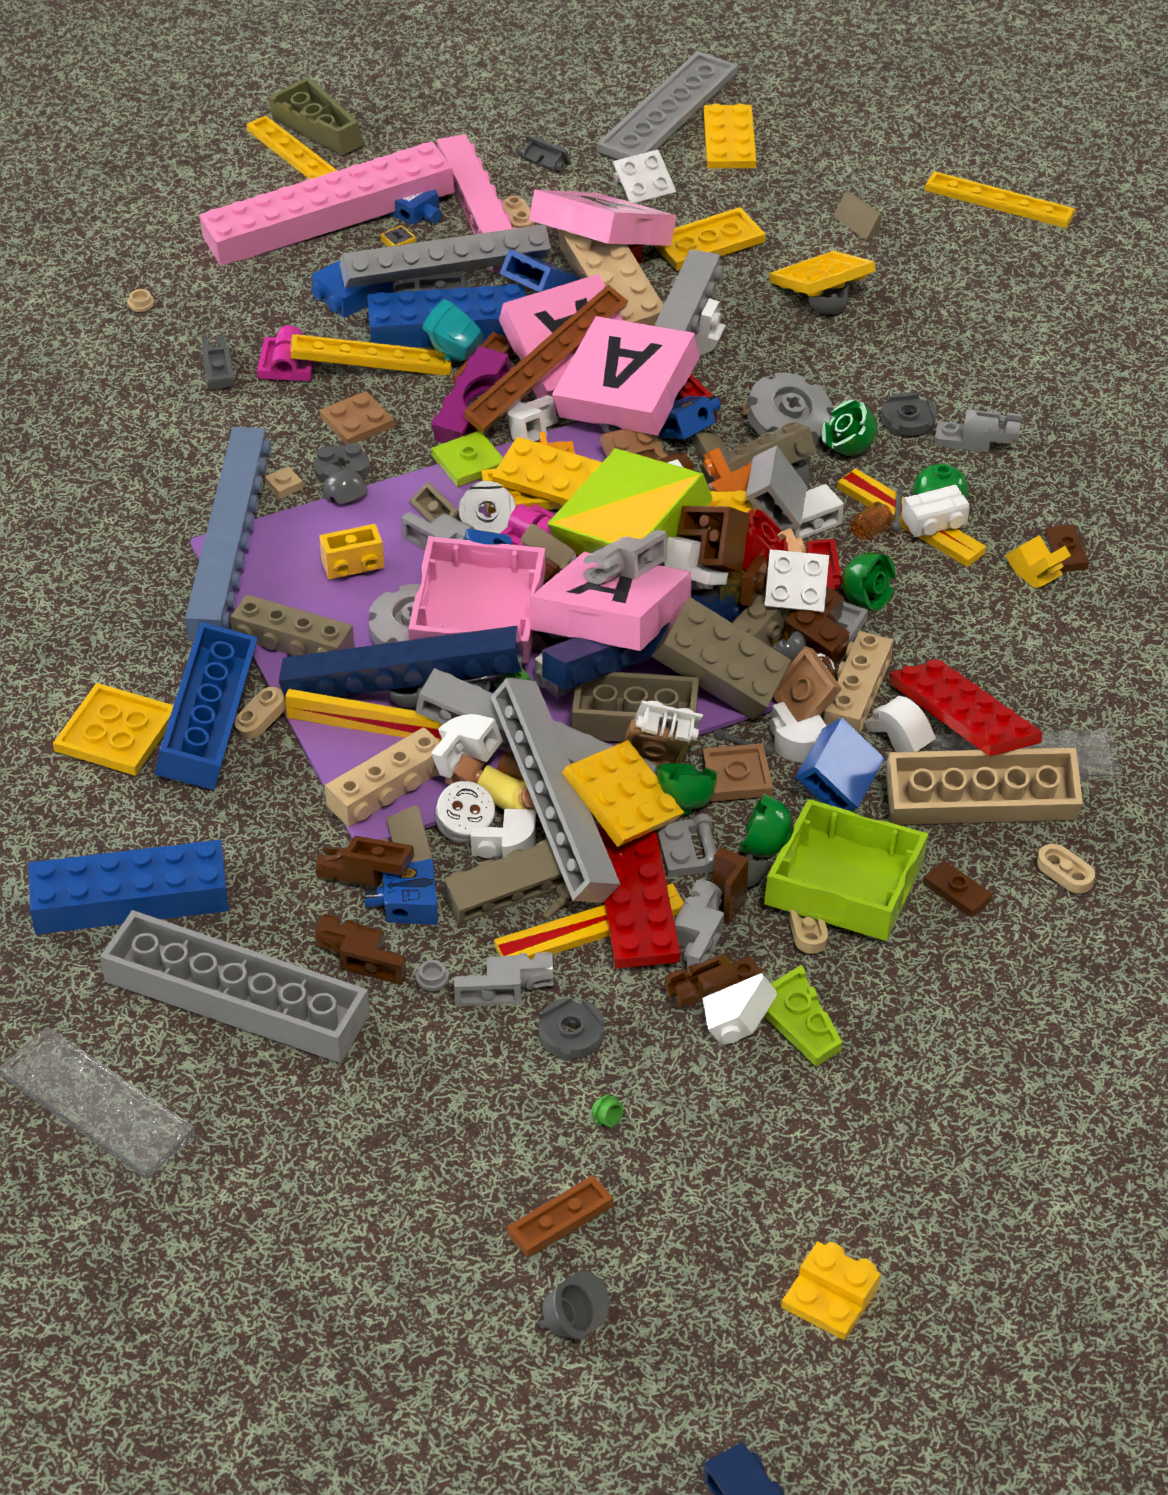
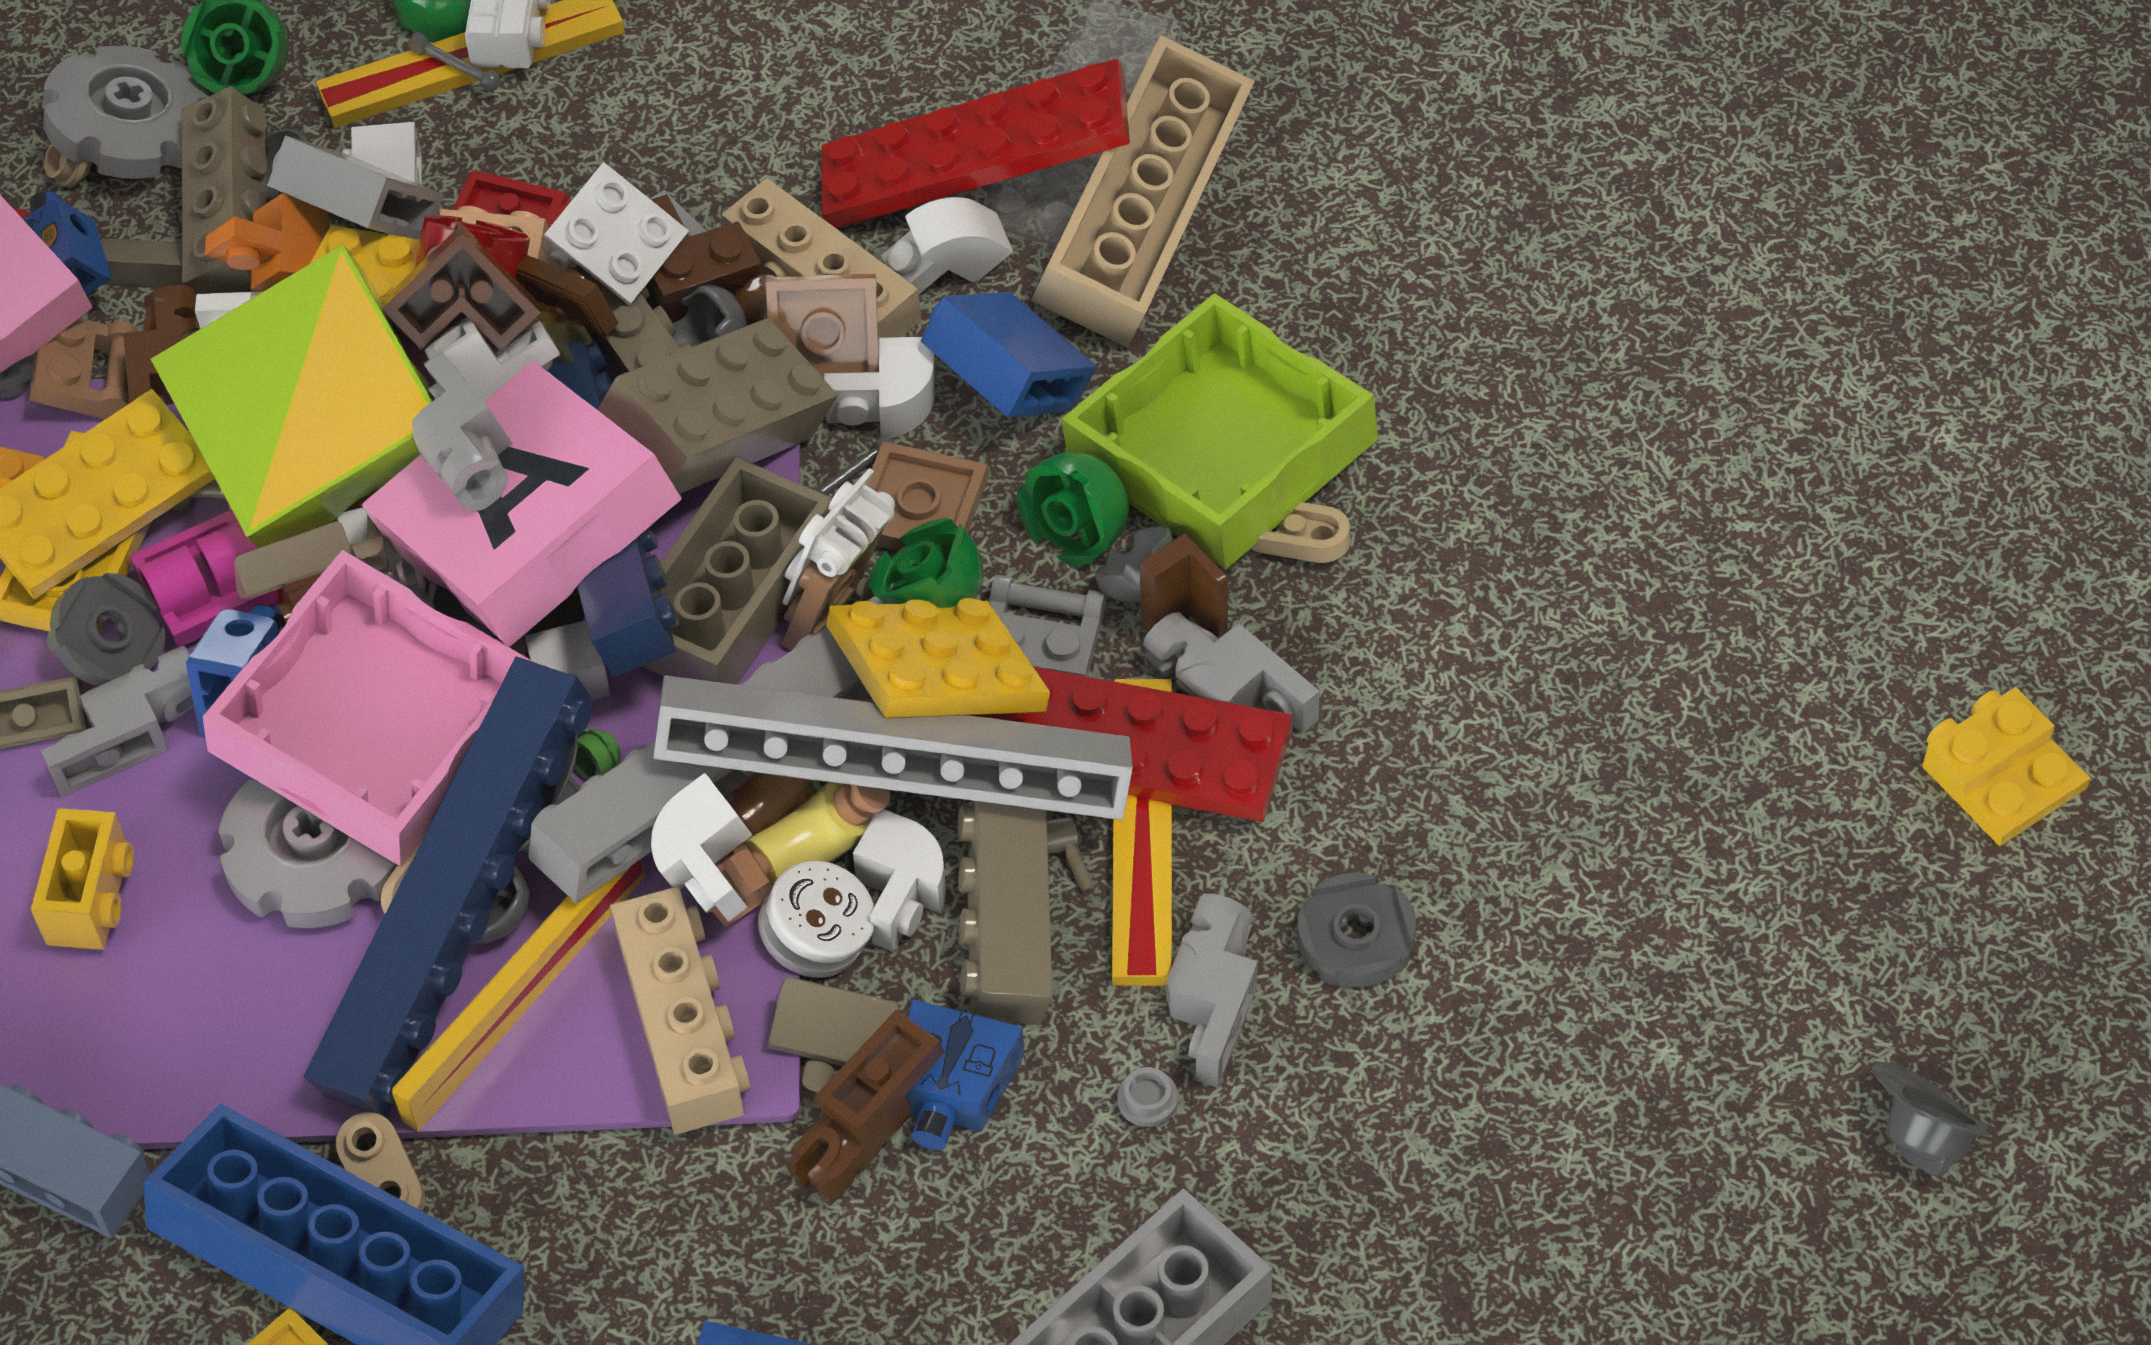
camera: 65 degrees left, 10 degrees up
(290, 628) = (220, 1047): dark tan brick -> none
(360, 949) = (1041, 1184): reddish brown plate -> none
(560, 1216) = (1733, 1077): dark orange plate -> none
(607, 1111) = (1547, 938): bright green plate -> none
(708, 978) = (1357, 693): reddish brown plate -> none
(738, 1008) = (1441, 684): white slope -> none
(801, 1018) = (1465, 614): lime wing -> none
(870, 576) = (588, 144): green cylinder -> none
(871, 521) = (457, 108): clear orange brick -> none
(957, 889) = (1310, 310): reddish brown plate -> none
(1069, 869) = (1334, 164): tan plate -> none

